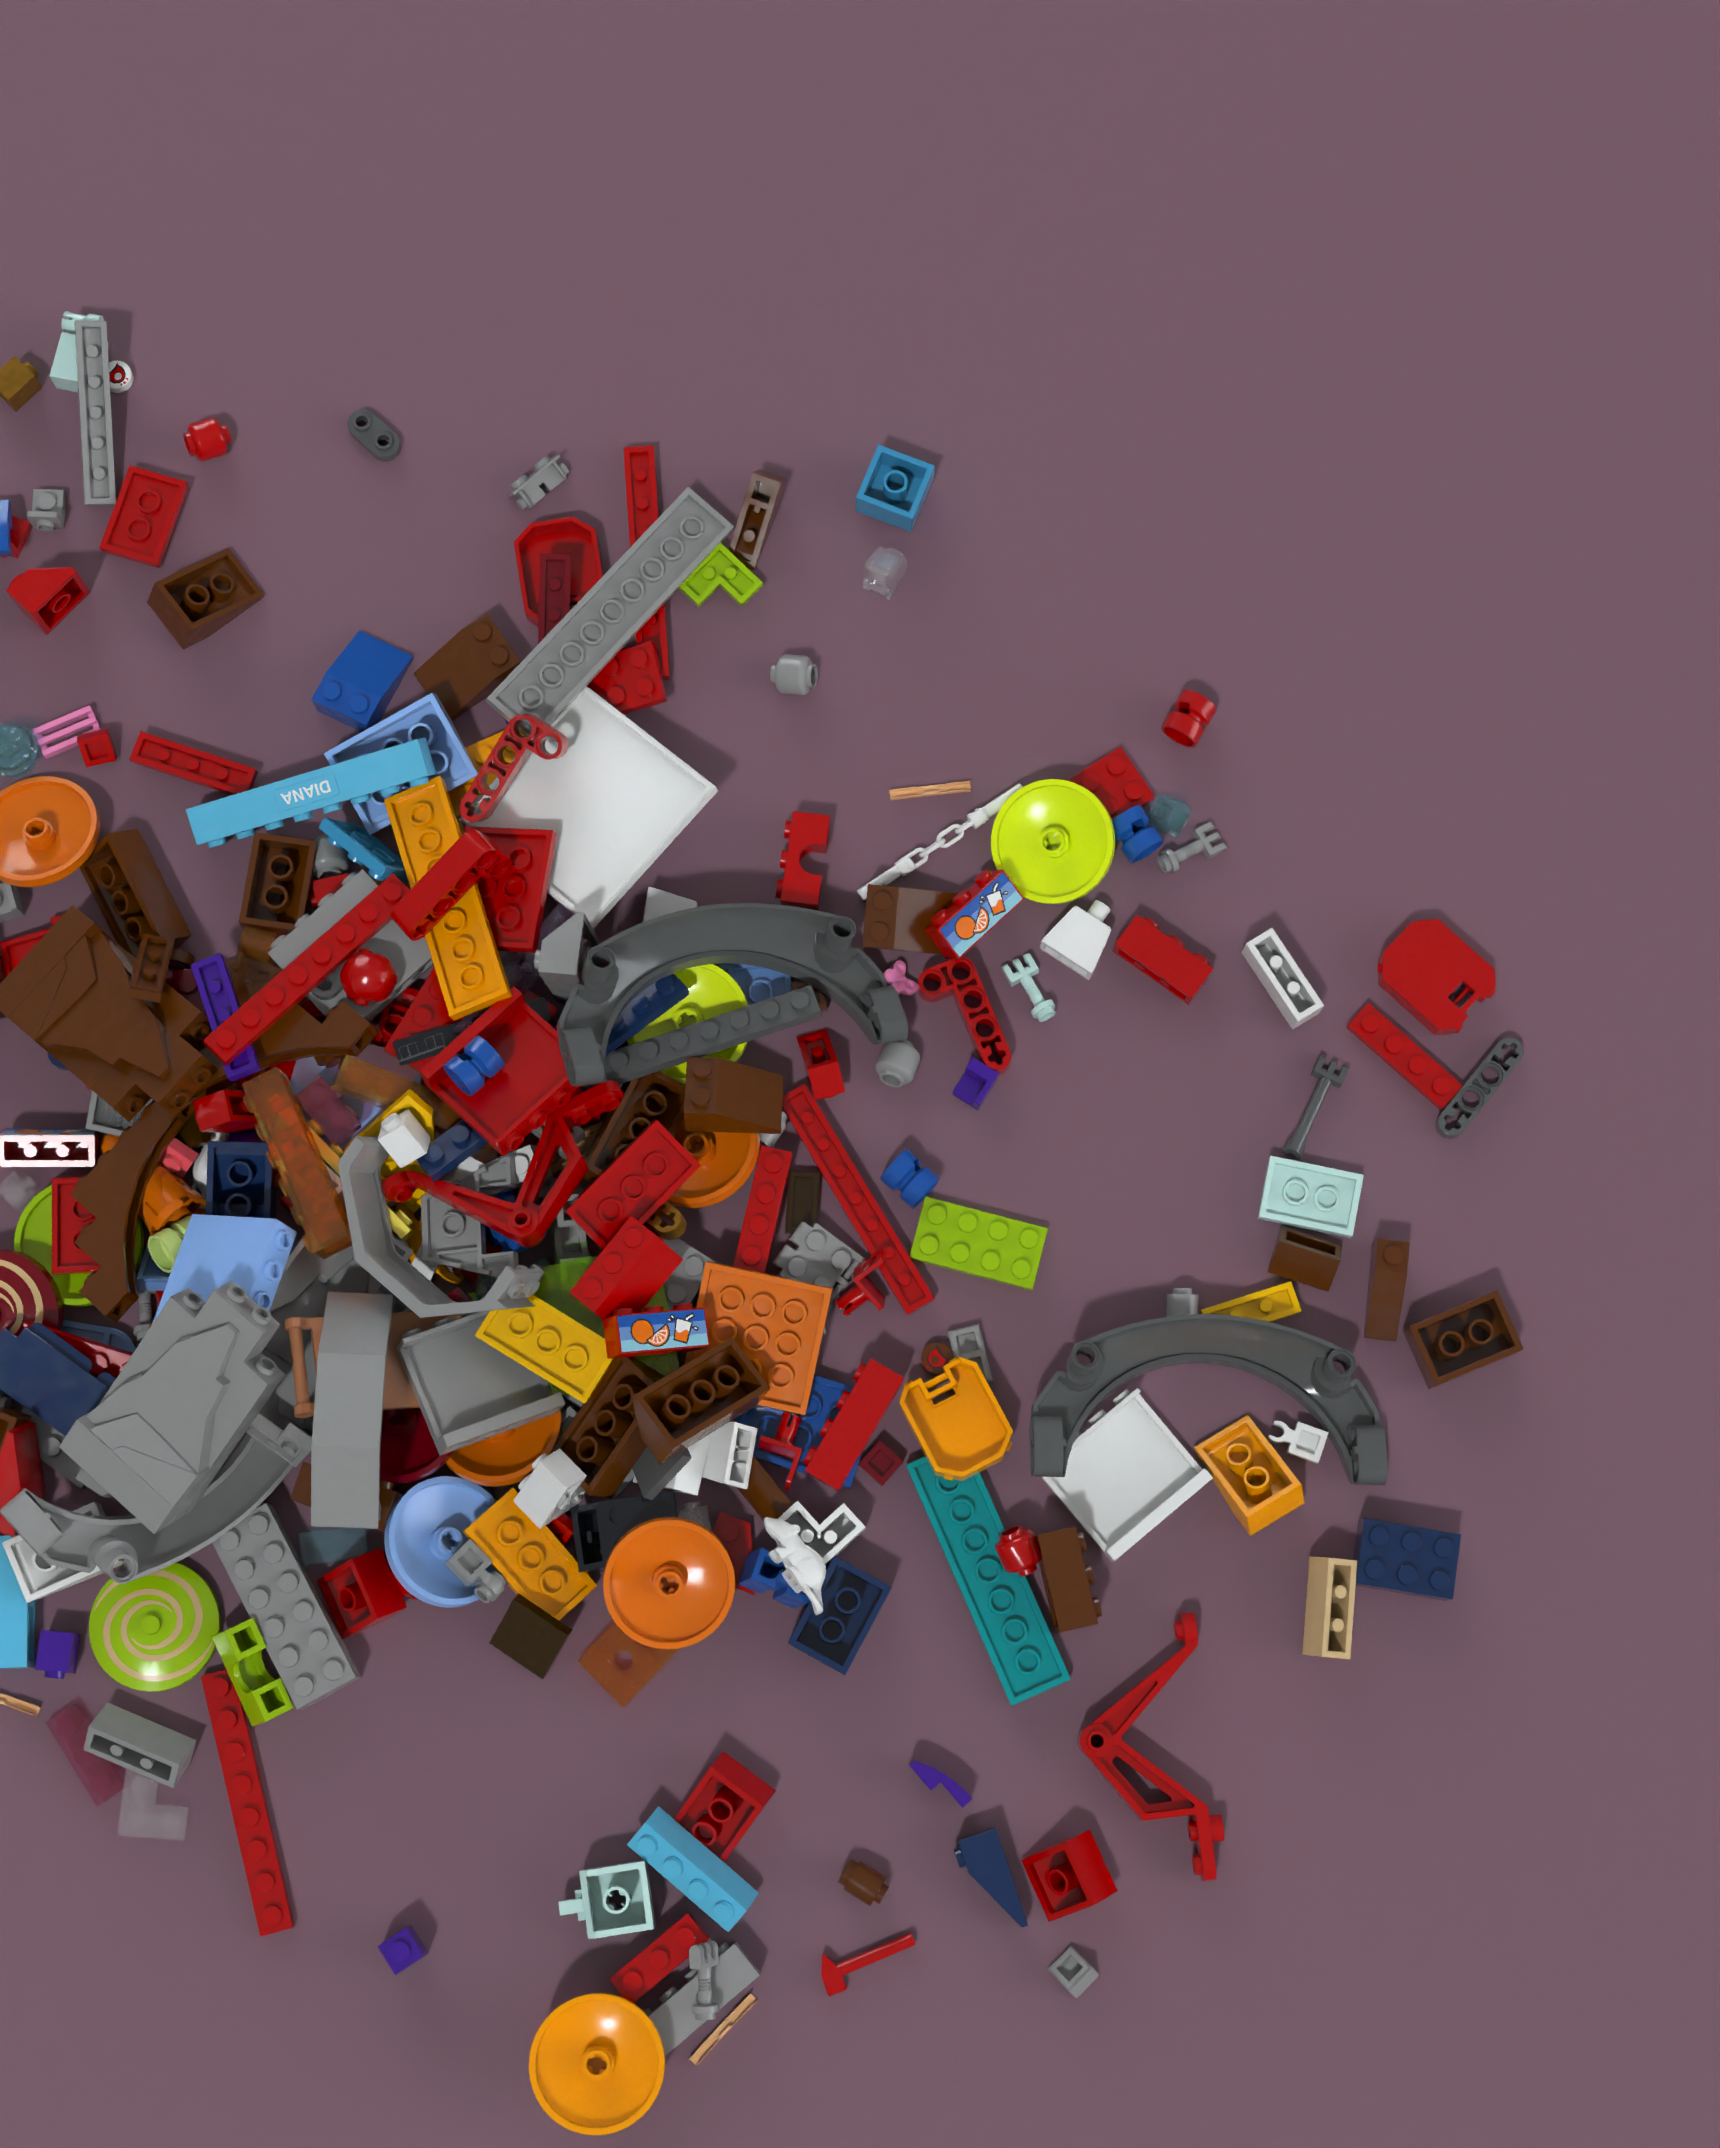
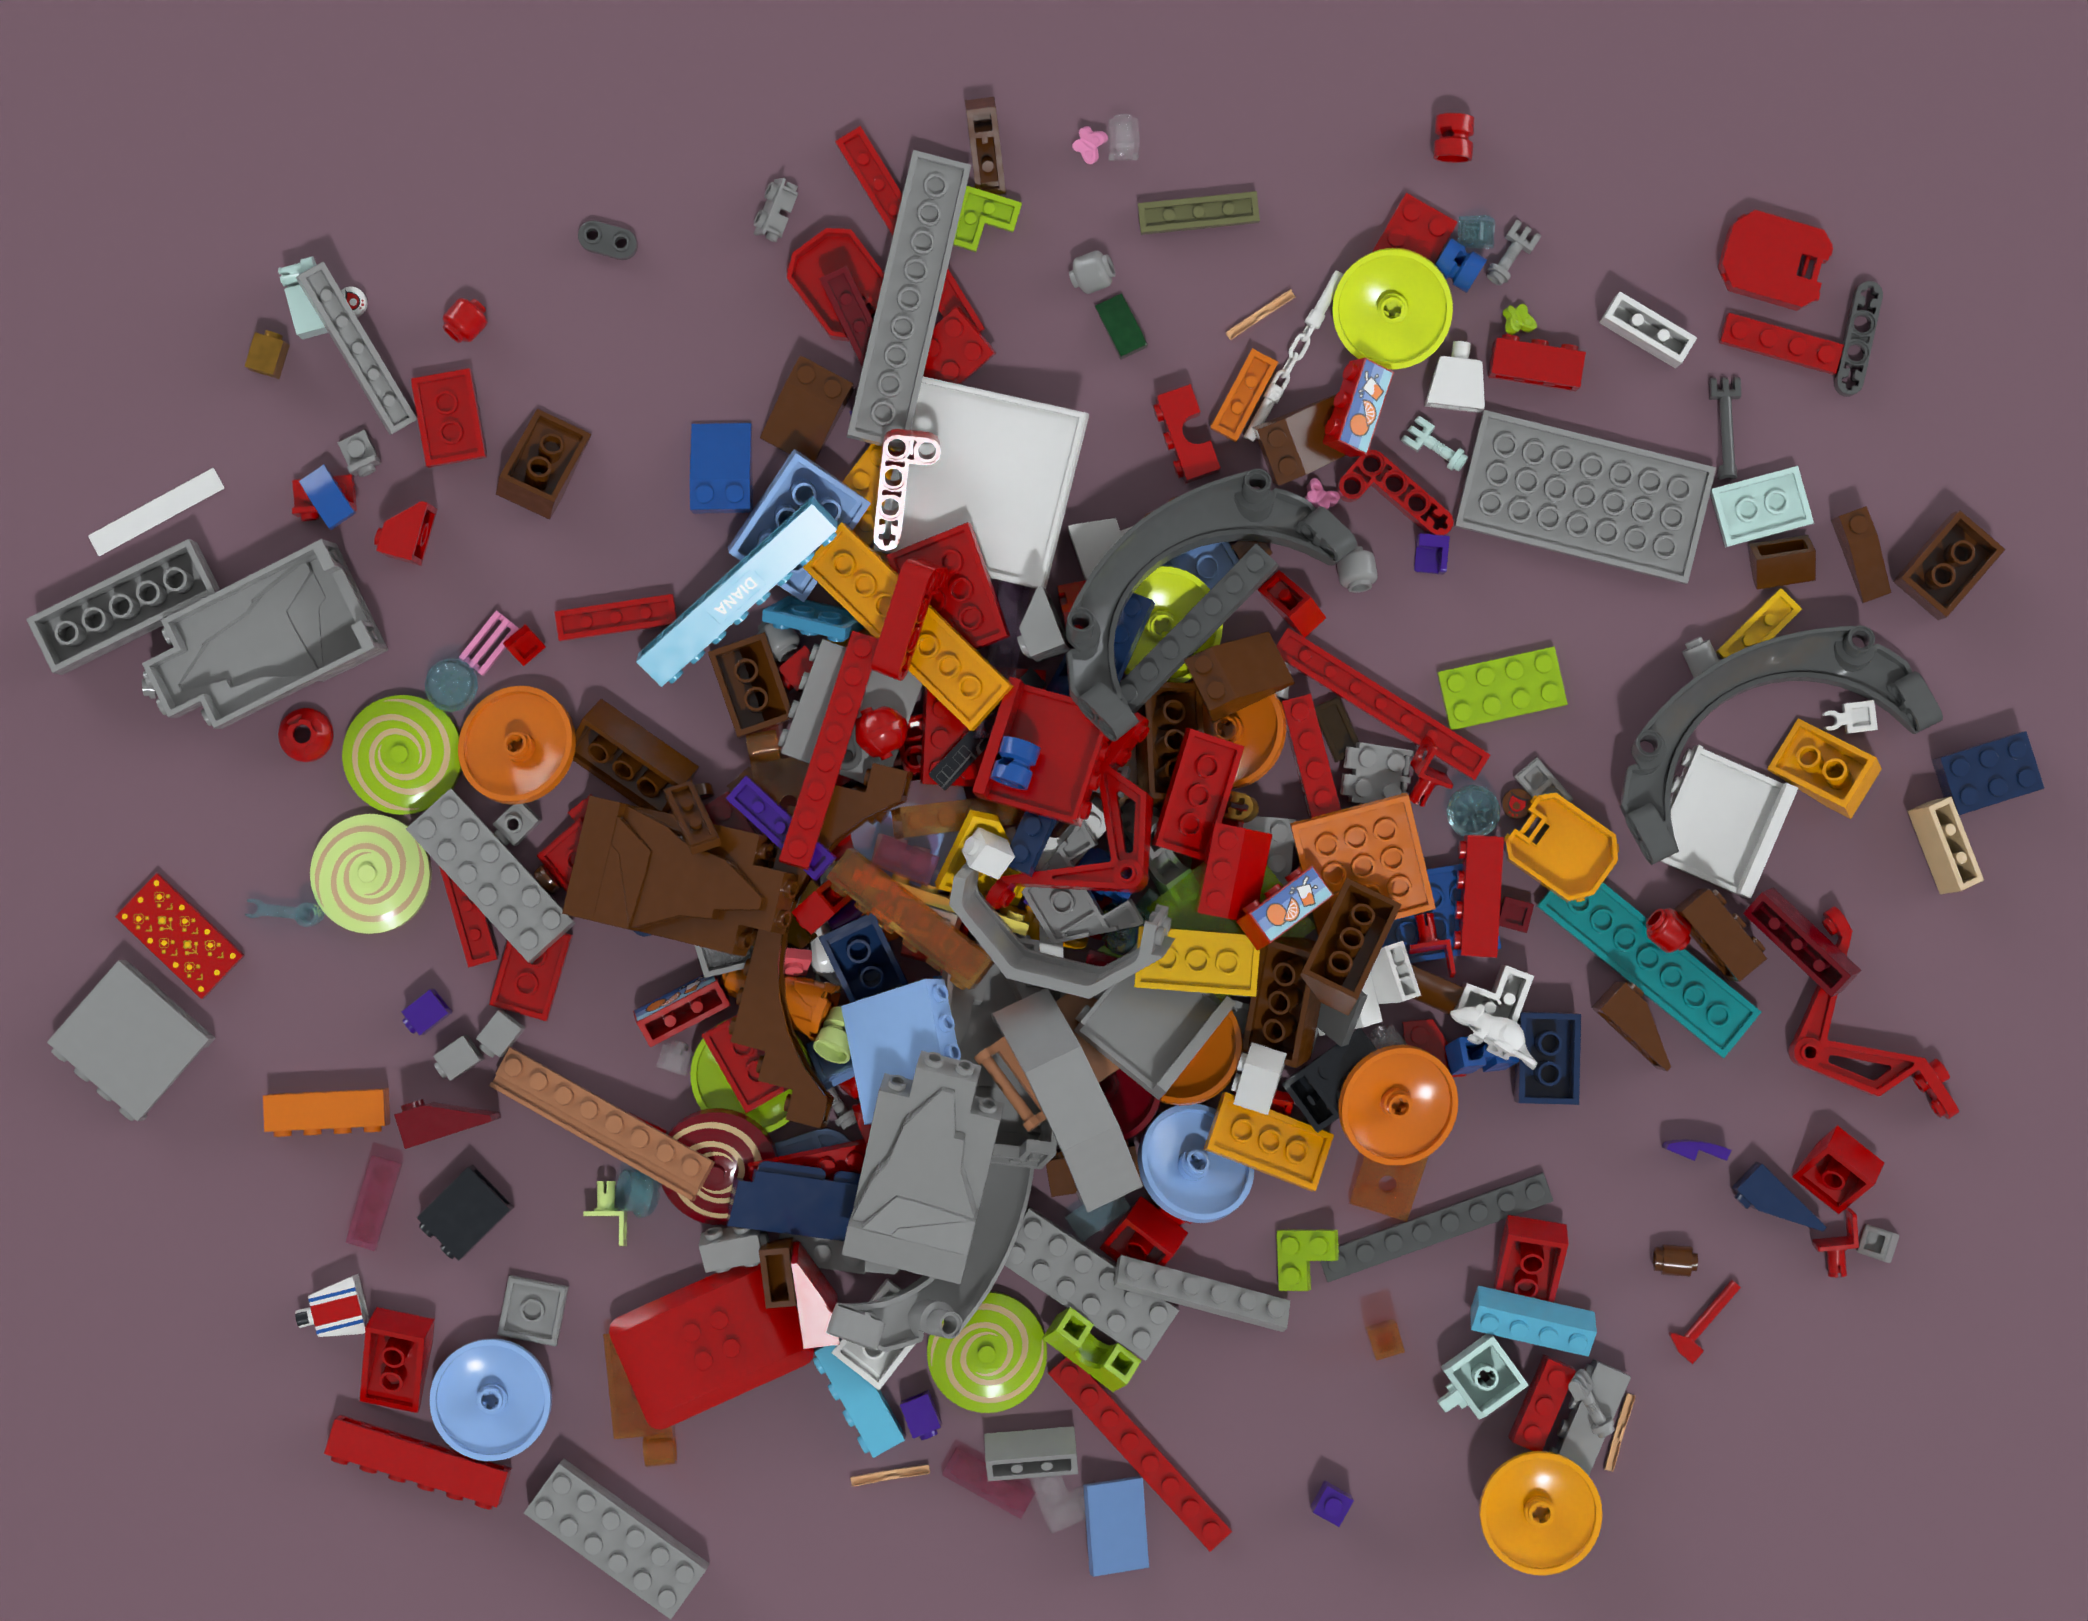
camera: 25 degrees left, 10 degrees up
(182, 1861) = (1116, 1526): none -> medium blue tile
(387, 1672) = (1201, 1293): none -> light grey plate
(469, 1565) = (1227, 1175): light grey plate -> none
(503, 1680) = (1296, 1251): none -> lime plate
(530, 1636) = (1302, 1203): dark brown tile -> none
(539, 1811) = (1384, 1339): none -> clear orange brick
(647, 1728) = (1438, 1226): none -> dark grey plate
(795, 737) = (1121, 326): none -> dark green slope
(851, 563) = (1089, 143): none -> bright pink piece
(875, 853) = (1244, 395): none -> orange plate
(891, 1342) = (1473, 811): none -> clear light blue piece
(895, 488) = (1094, 58): dark azure brick -> none
(909, 1178) = (1418, 664): blue wheel -> none
(919, 671) = (1198, 213): none -> olive plate
(939, 1614) = (1631, 1017): none -> reddish brown slope
(1029, 1953) = (1838, 1245): none -> red bracket
(1142, 1628) = (1802, 942): none -> dark red brick
(1147, 1104) = (1585, 497): none -> light grey plate
(1166, 910) = (1518, 319): none -> lime piece

